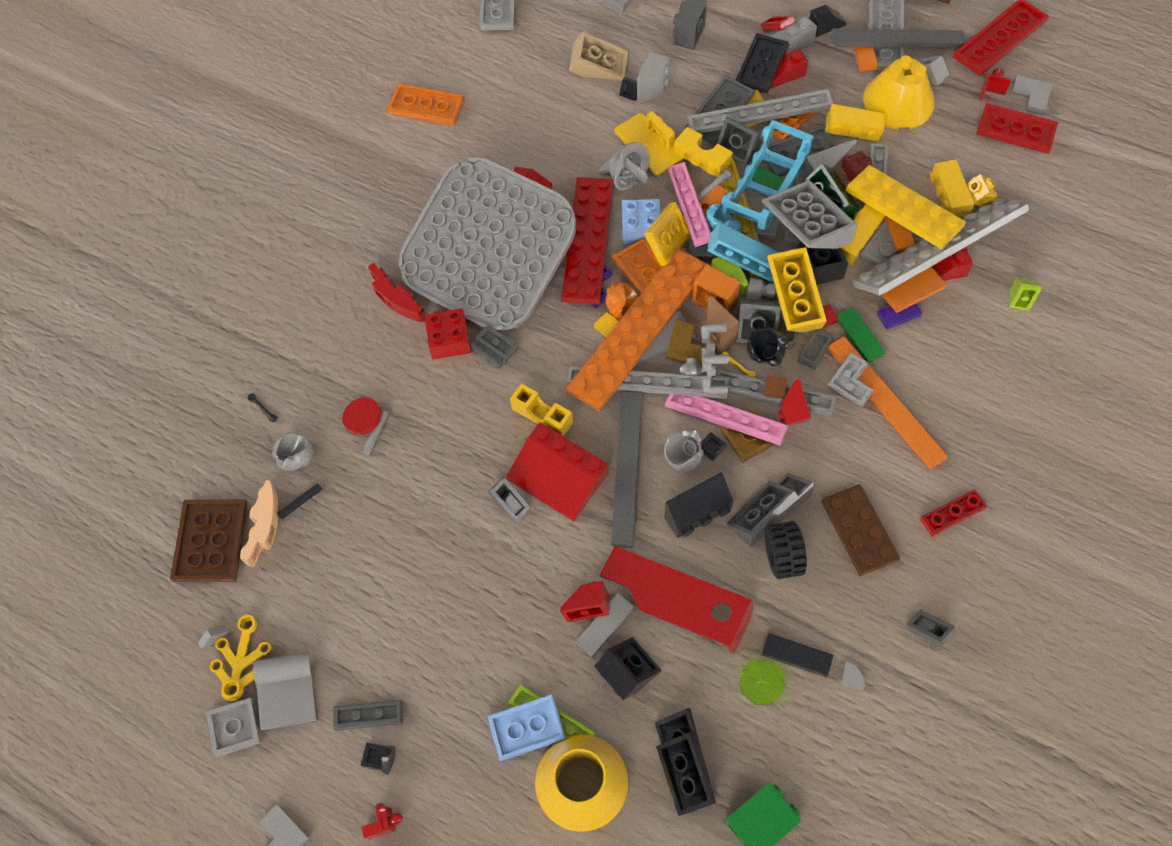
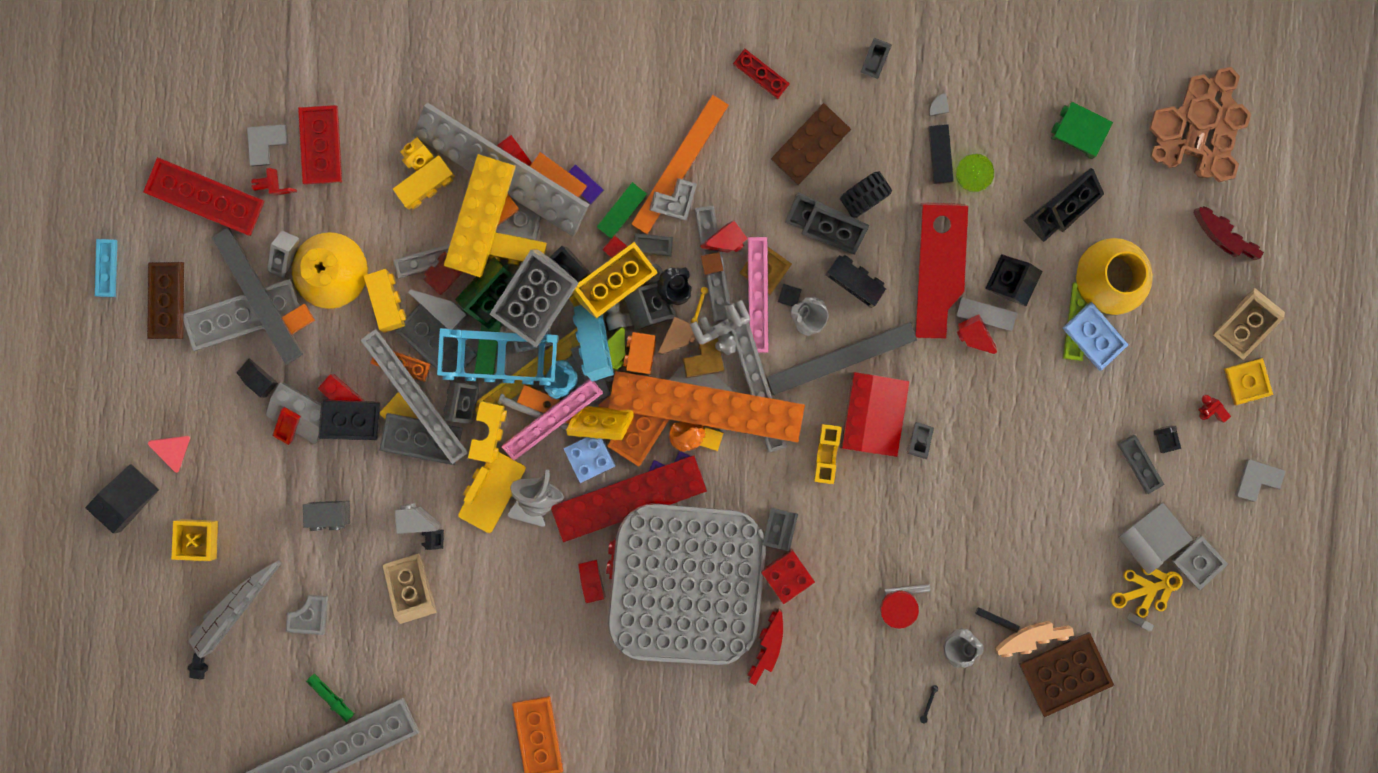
camera: 120 degrees left, 25 degrees up
(1024, 293) = (516, 81): lime slope -> none

